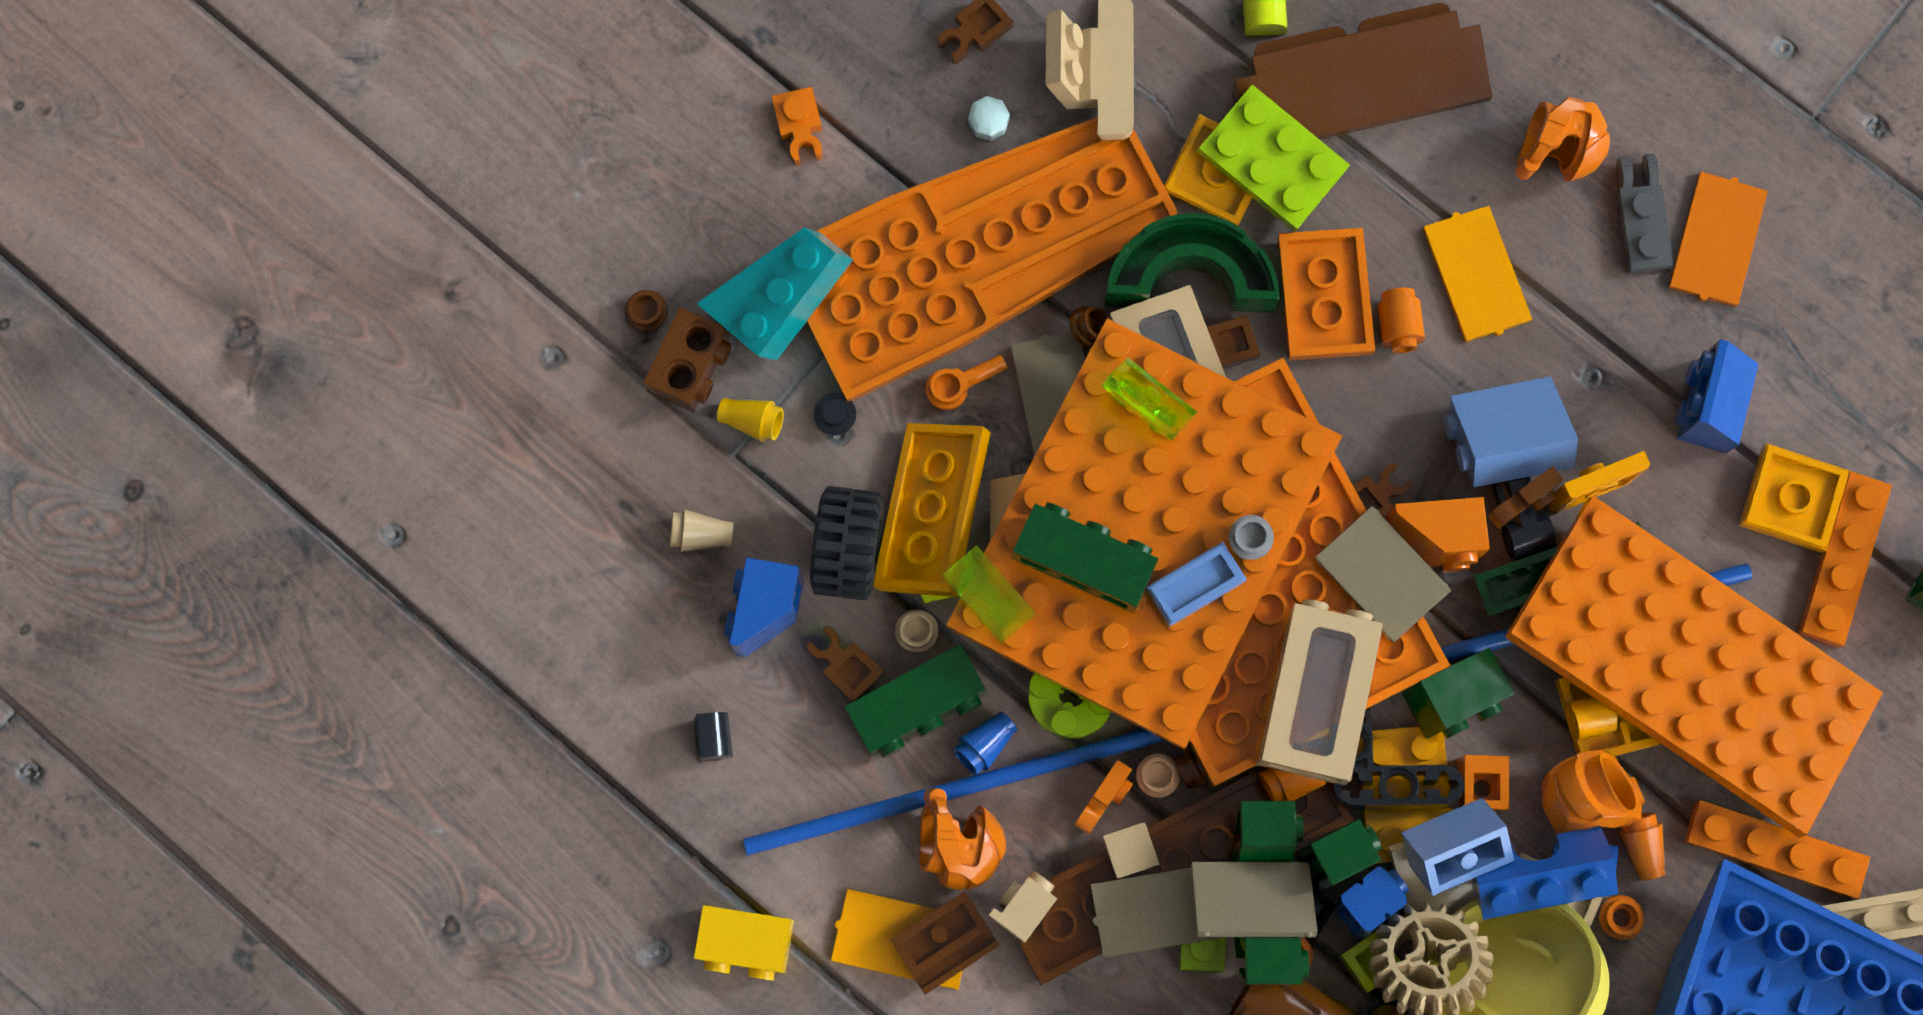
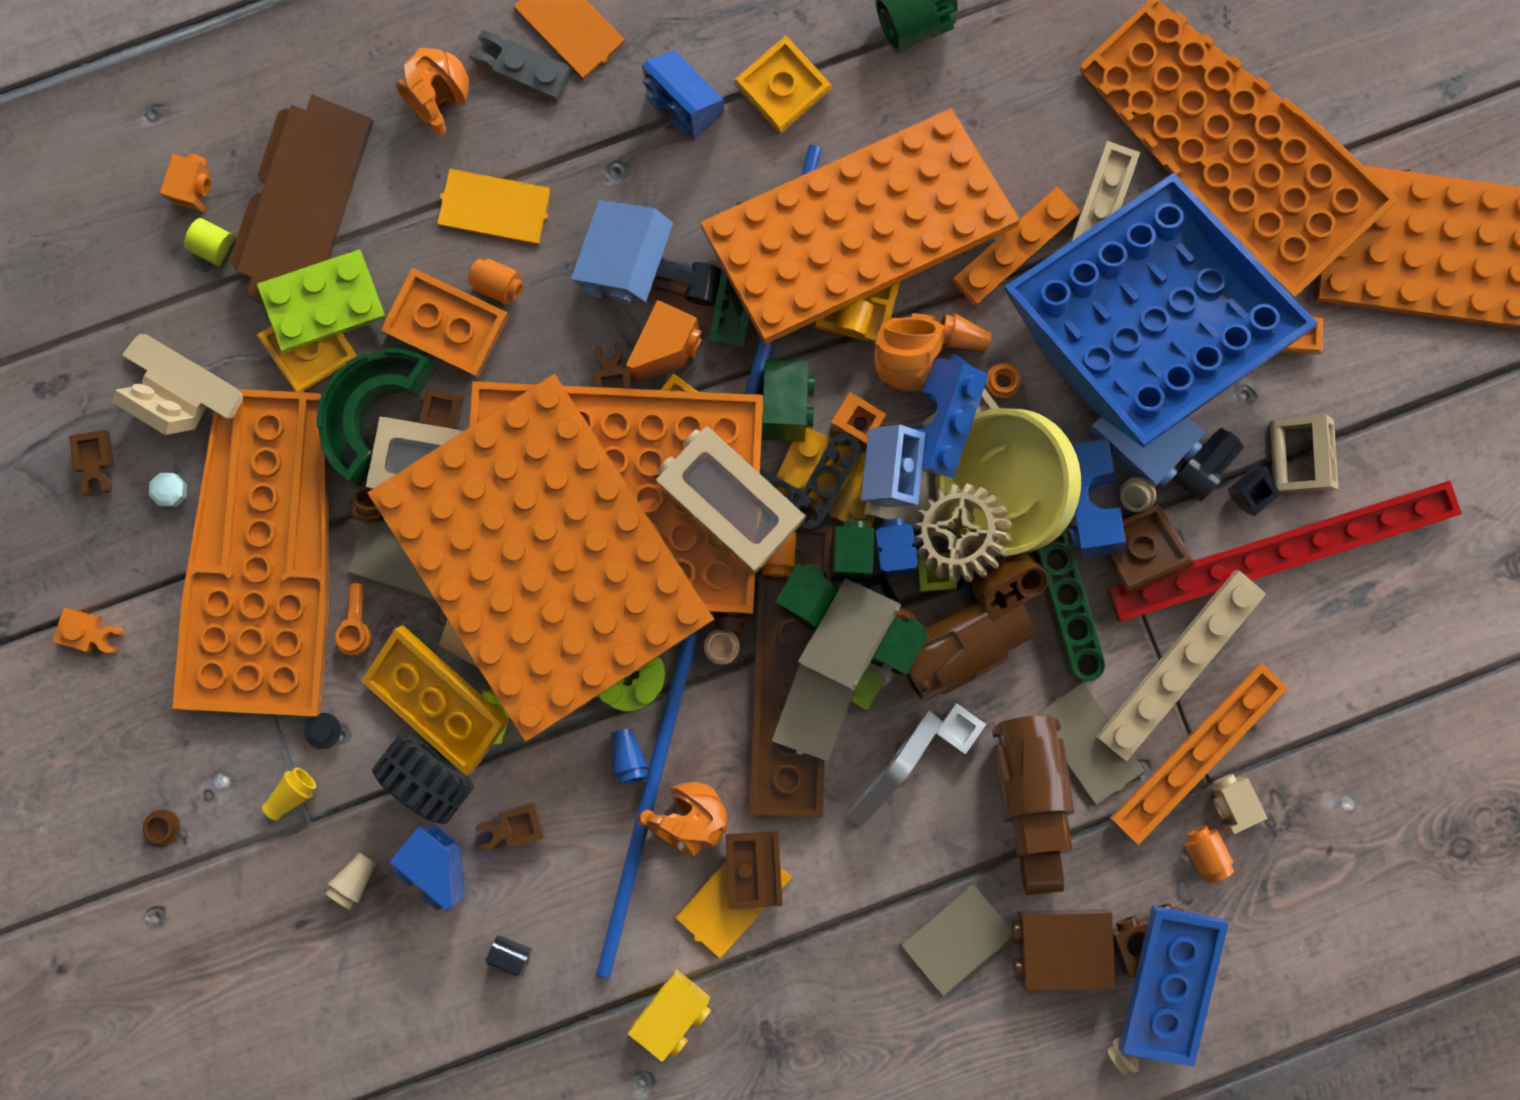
camera: 60 degrees left, 5 degrees up
(677, 357) = (209, 826): reddish brown brick -> none
(778, 292) = (204, 723): teal wedge -> none
(916, 631) = (518, 761): tan plate -> none
(917, 702) = (569, 792): dark green brick -> none
(988, 594) = (521, 699): clear neon green plate -> none
(1025, 906) = (761, 798): tan brick -> none
(1085, 556) = (533, 612): dark green brick -> none
(1112, 789) = (712, 685): orange plate -> none
(1130, 850) = (764, 698): tan tile -> none
(1149, 399) = (445, 498): clear neon green plate -> none
(1196, 584) = (601, 543): medium blue tile -> none
(1251, 537) = (590, 483): light grey plate -> none
(1382, 574) = (670, 404): dark tan piece -> none
(1535, 494) = (676, 262): reddish brown plate -> none
(1598, 481) = (692, 212): light orange plate -> none
(1845, 562) = (847, 77): orange plate -> none

